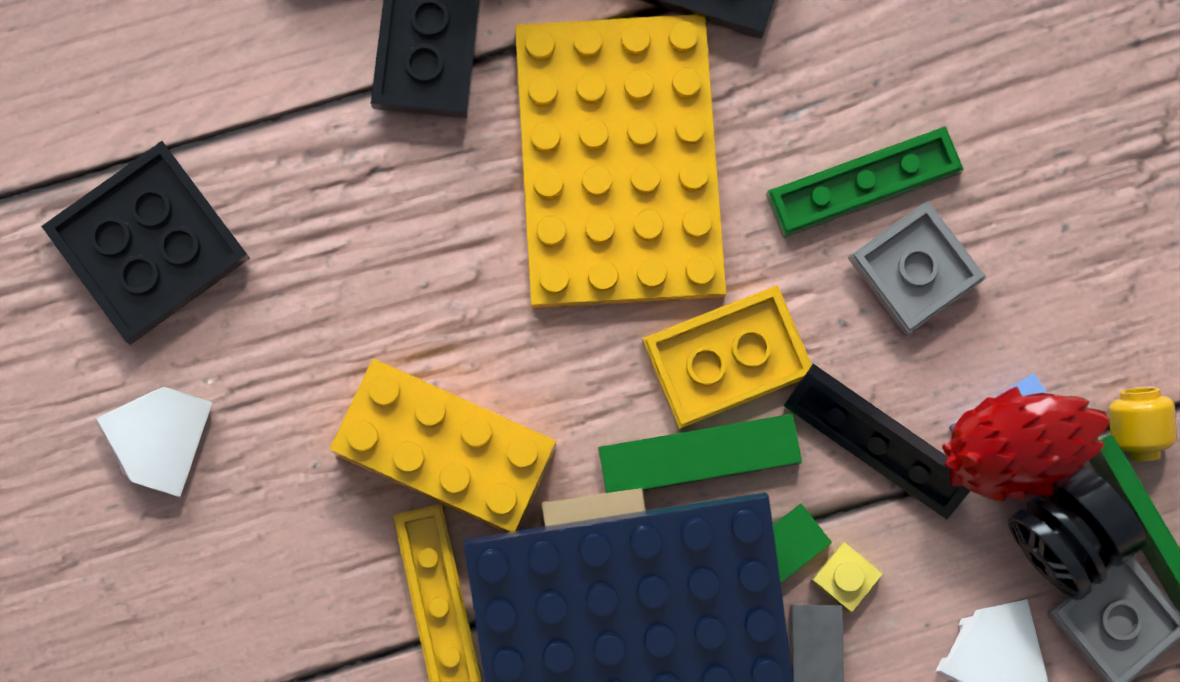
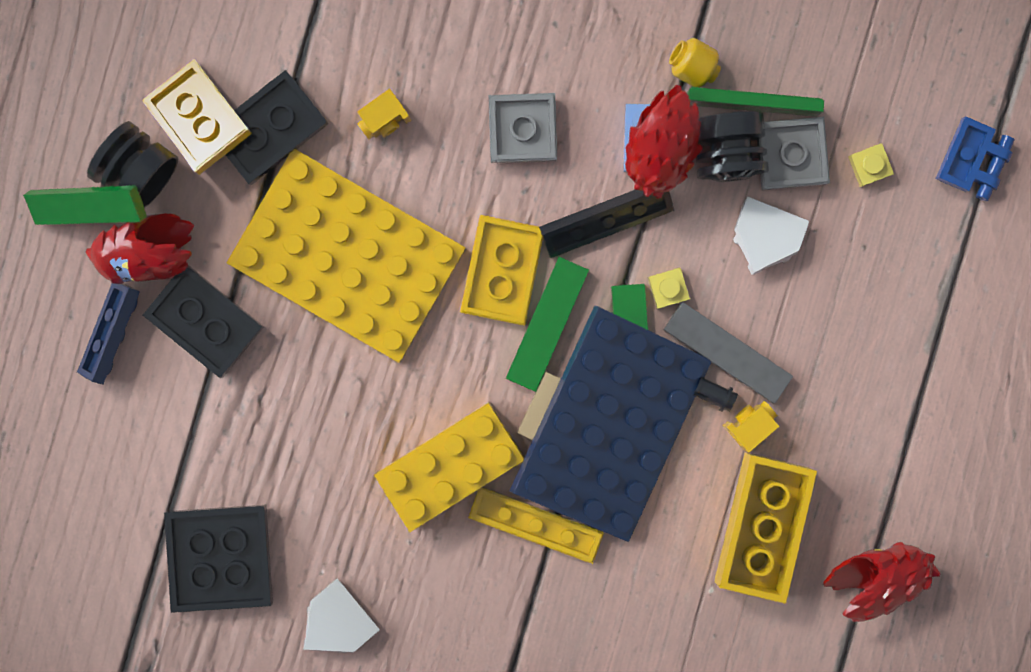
camera: 50 degrees left, 10 degrees up
(816, 92) = (382, 115): none -> yellow brick
(864, 182) = (452, 122): green tile -> none

